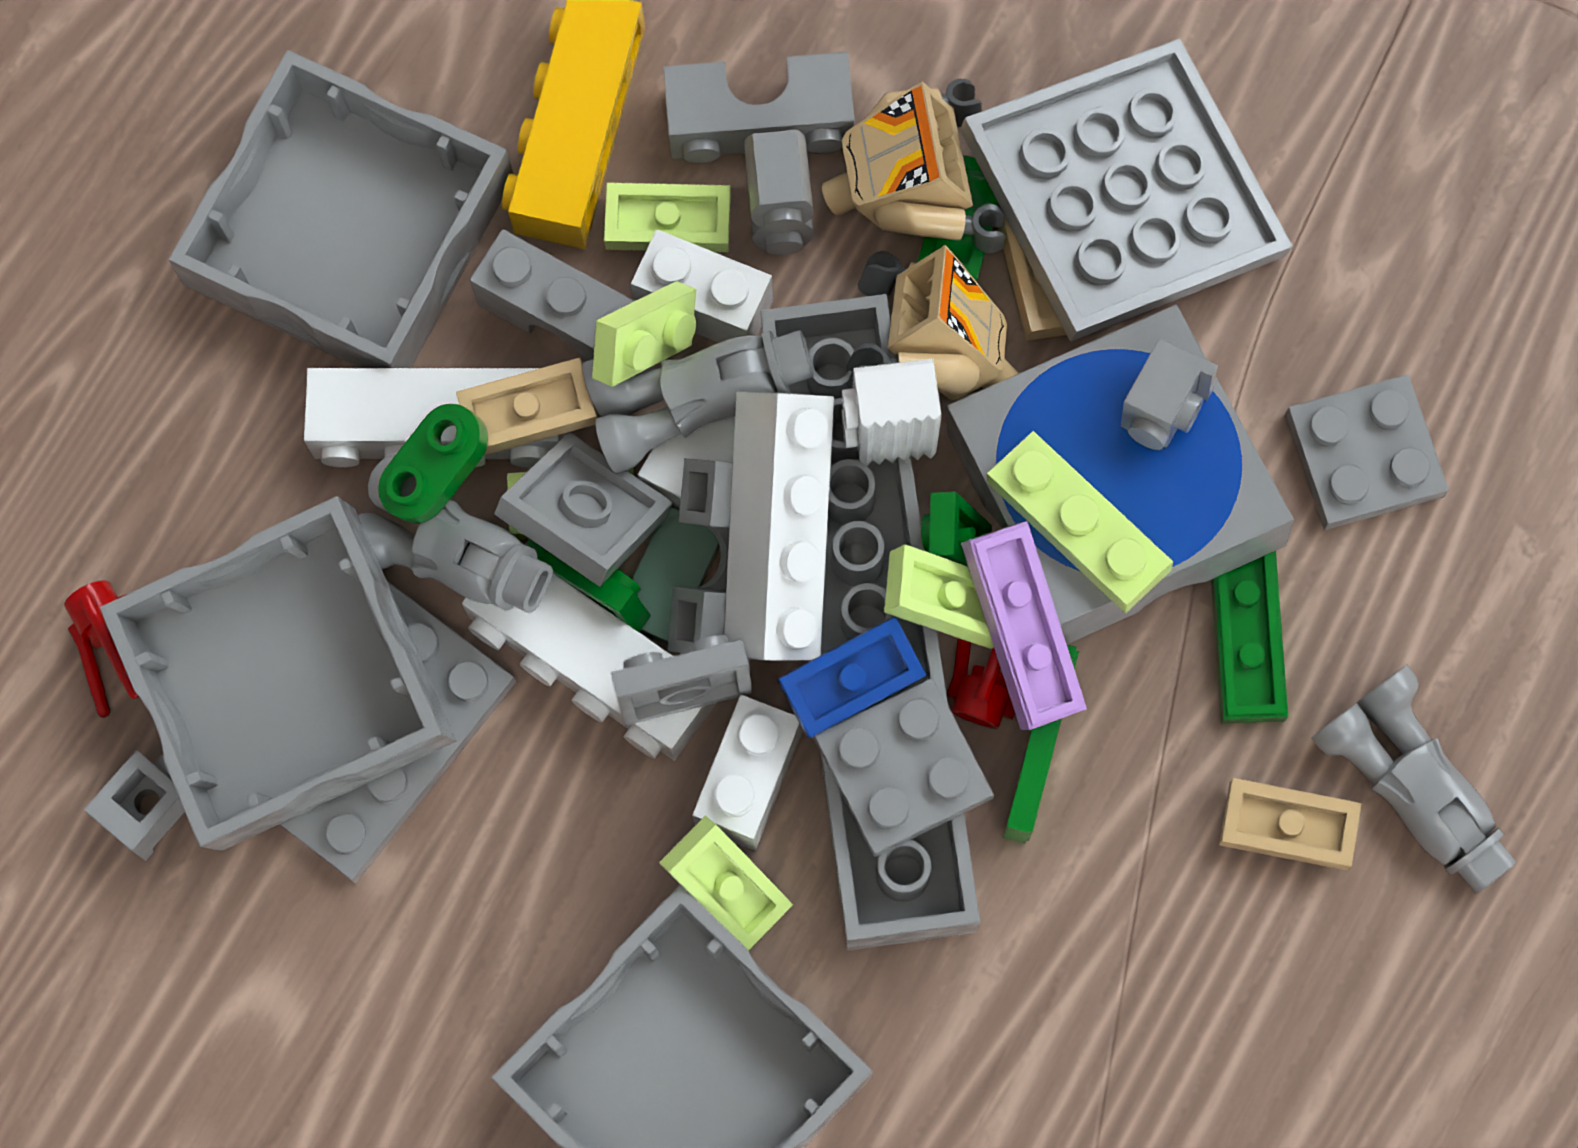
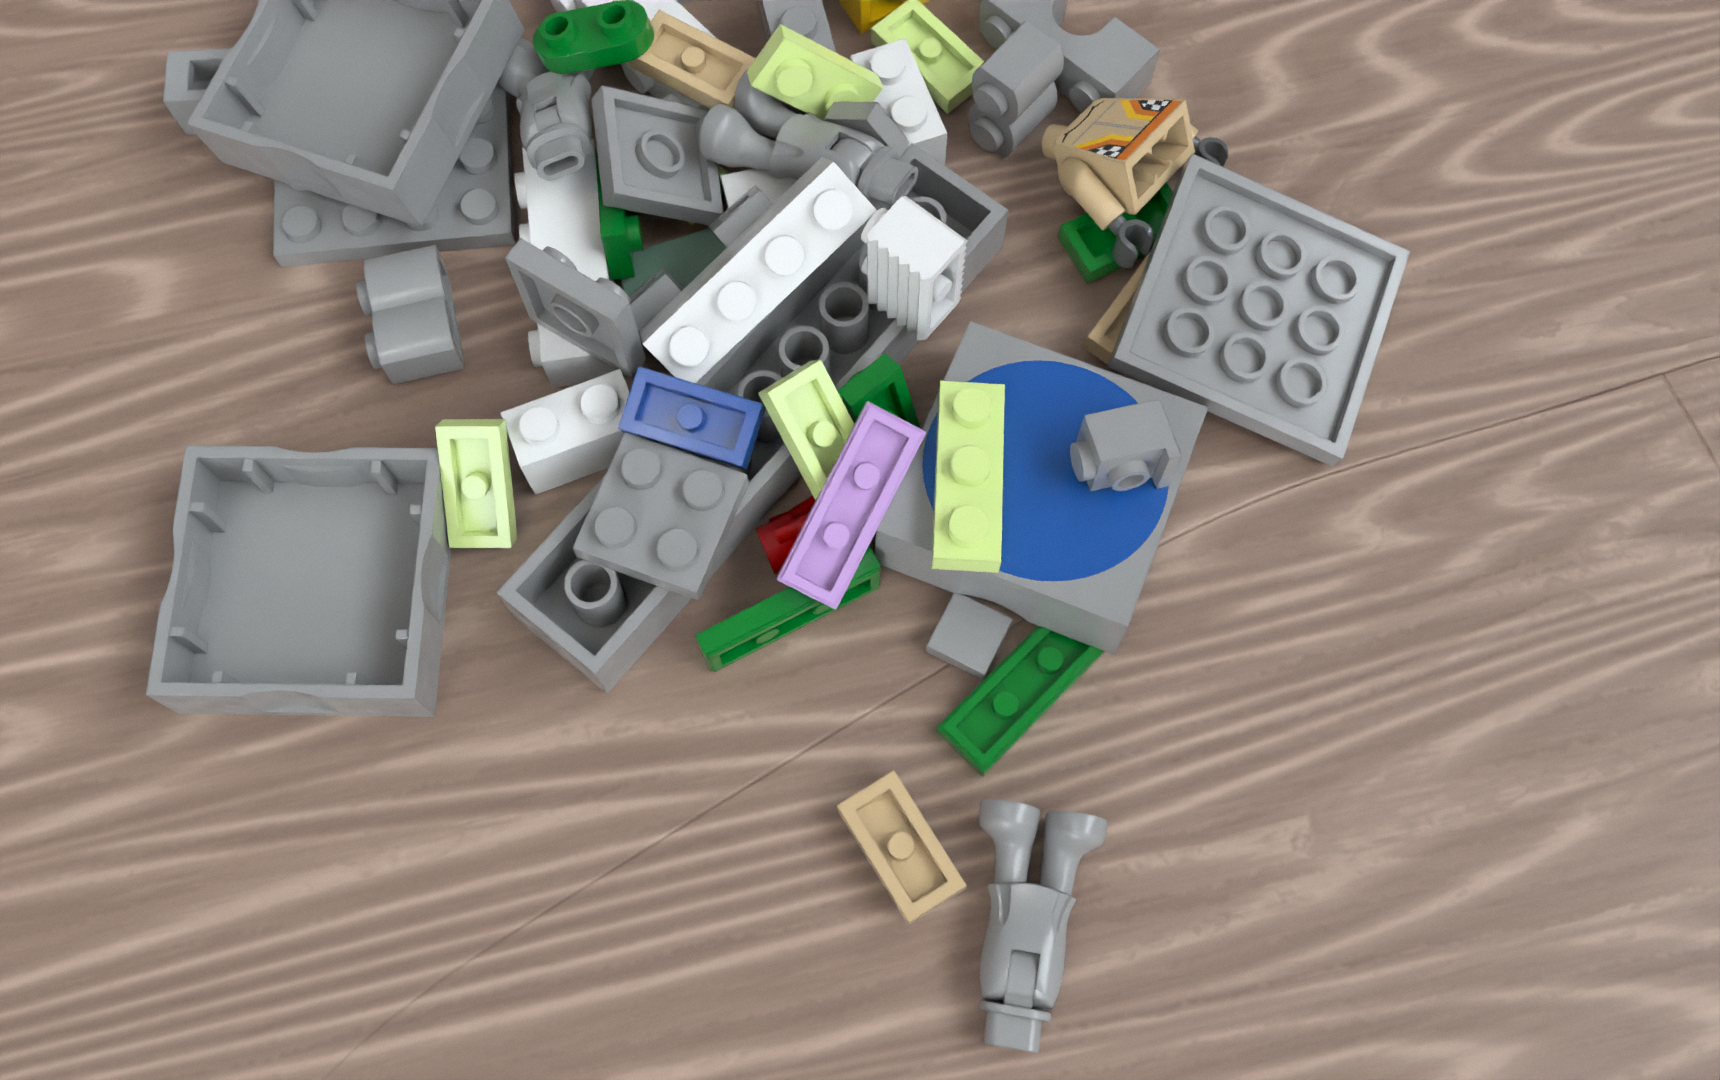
camera: 45 degrees right, 5 degrees down
(517, 813) = (410, 315): none -> light grey brick
(719, 328) = (871, 119): none -> light grey tile
(938, 317) = (1026, 271): tan torso -> none
(1174, 633) = (969, 635): none -> light grey tile
(1366, 452) = (1247, 652): light grey plate -> none

